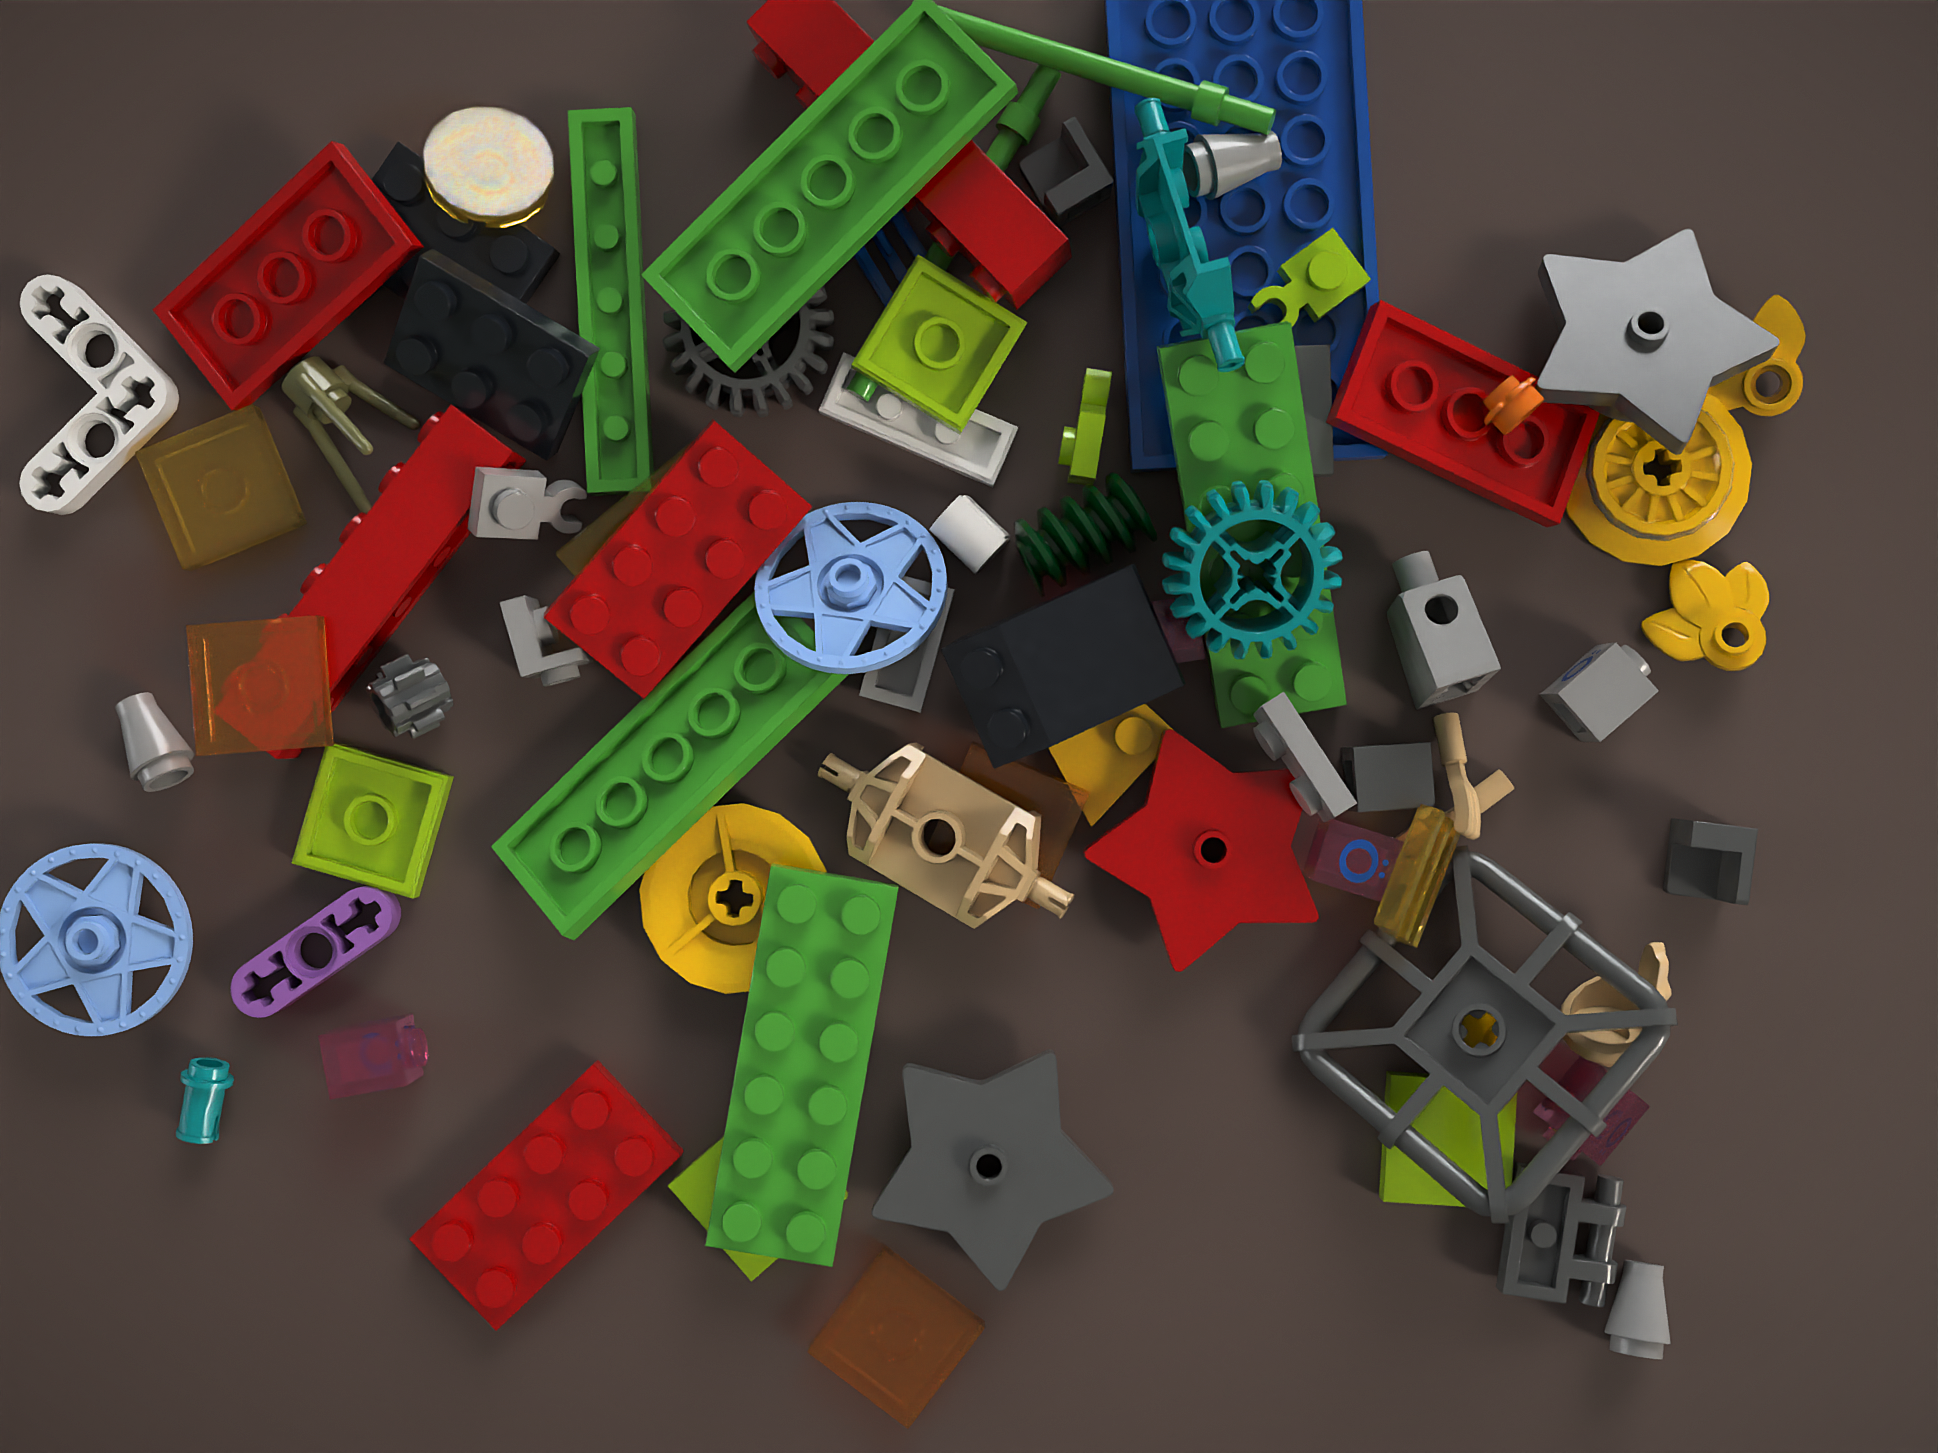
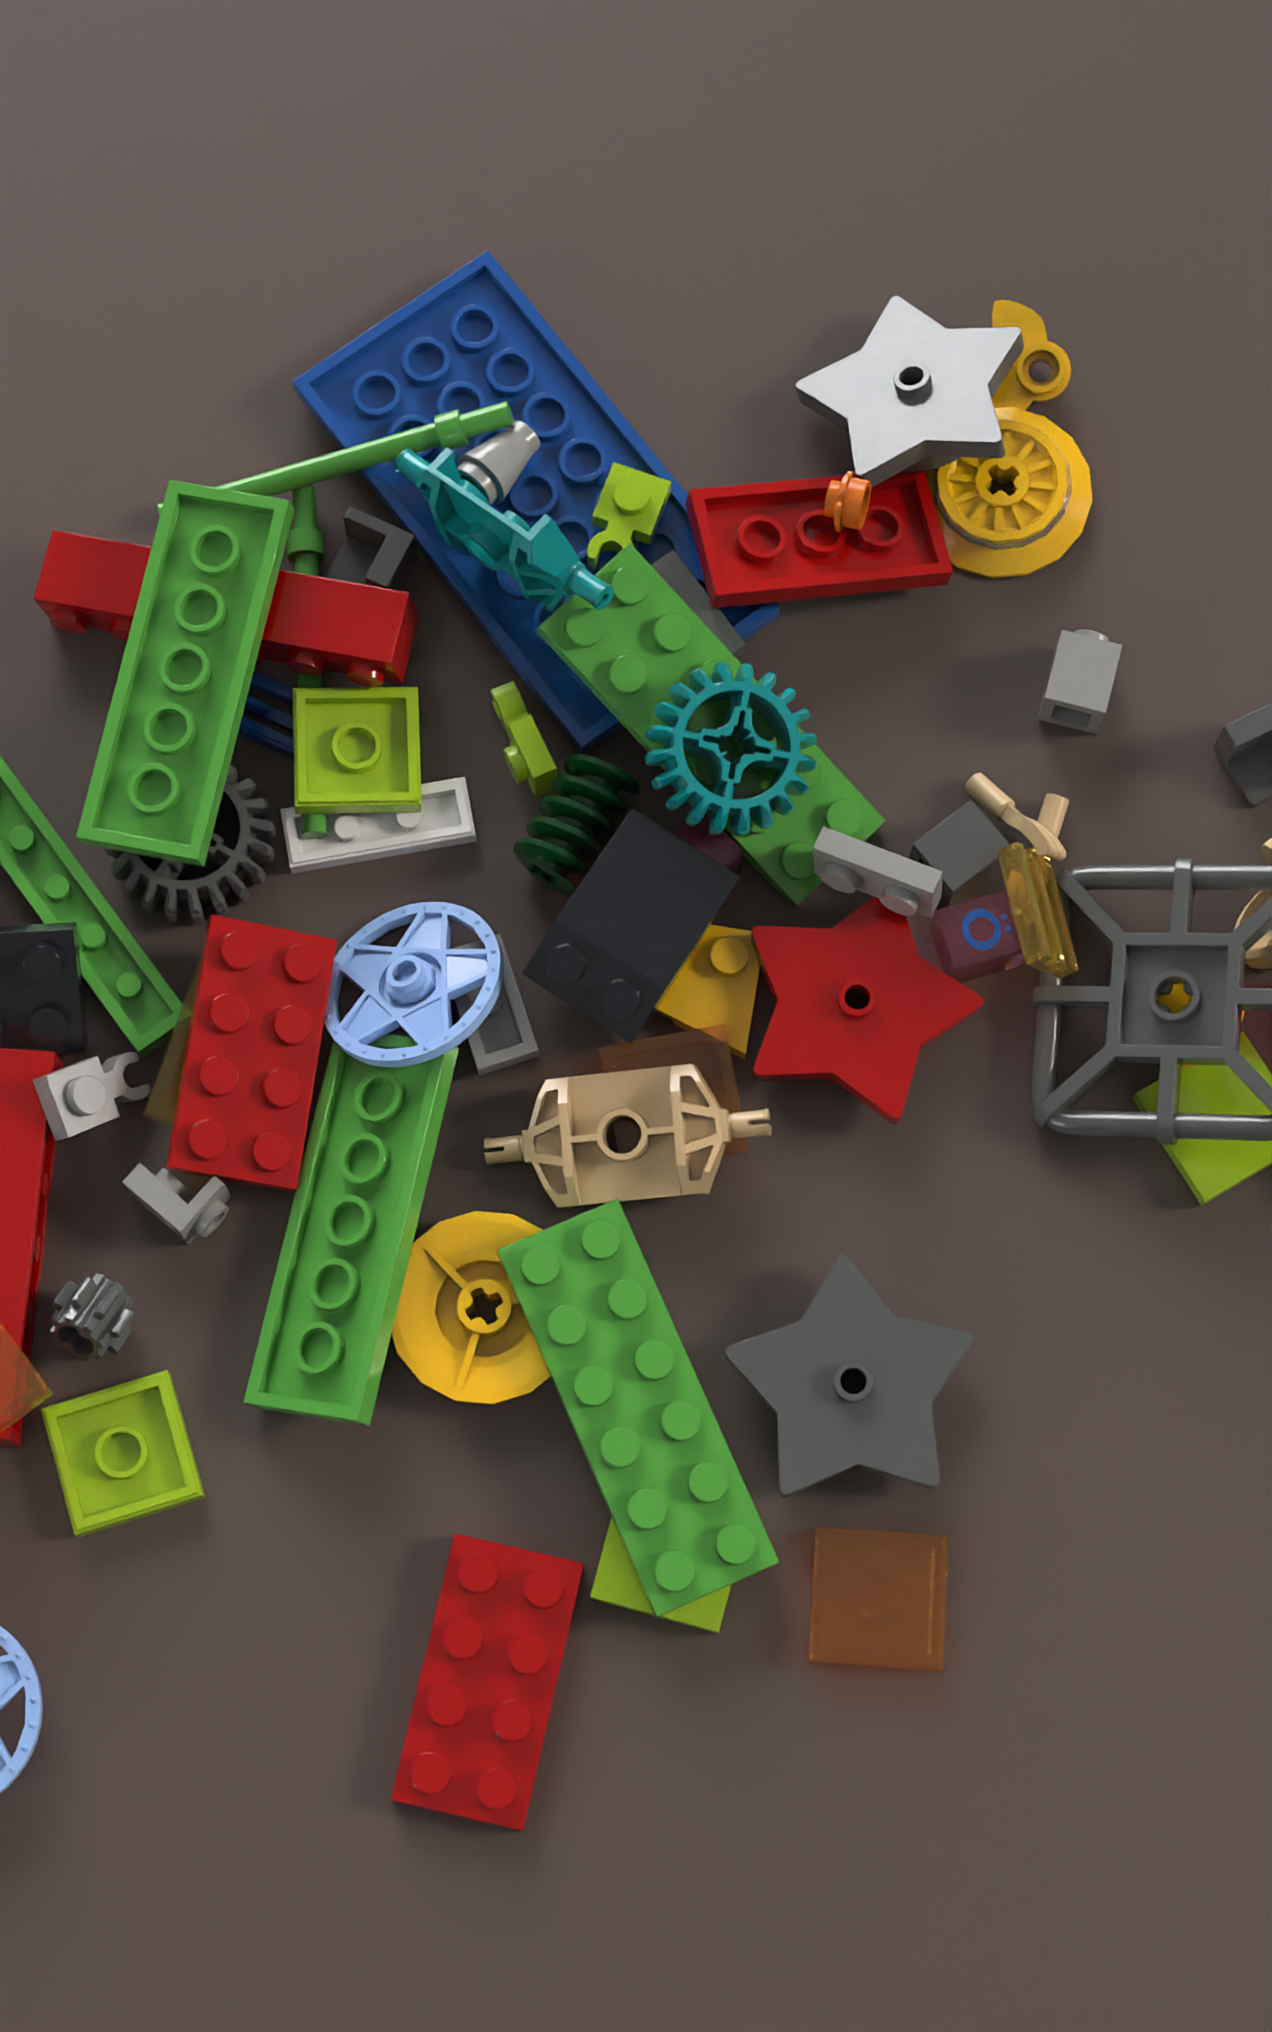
camera: 30 degrees left, 15 degrees down
(203, 1099) = (125, 1799): teal pin -> none
(289, 990) = (110, 1641): medium lavender beam -> none
(373, 1056) = (255, 1651): clear pink brick -> none
(970, 533) = (482, 881): white brick -> none
(1443, 657) = (920, 717): light grey torso -> none
(1706, 606) = (1117, 569): yellow plate -> none

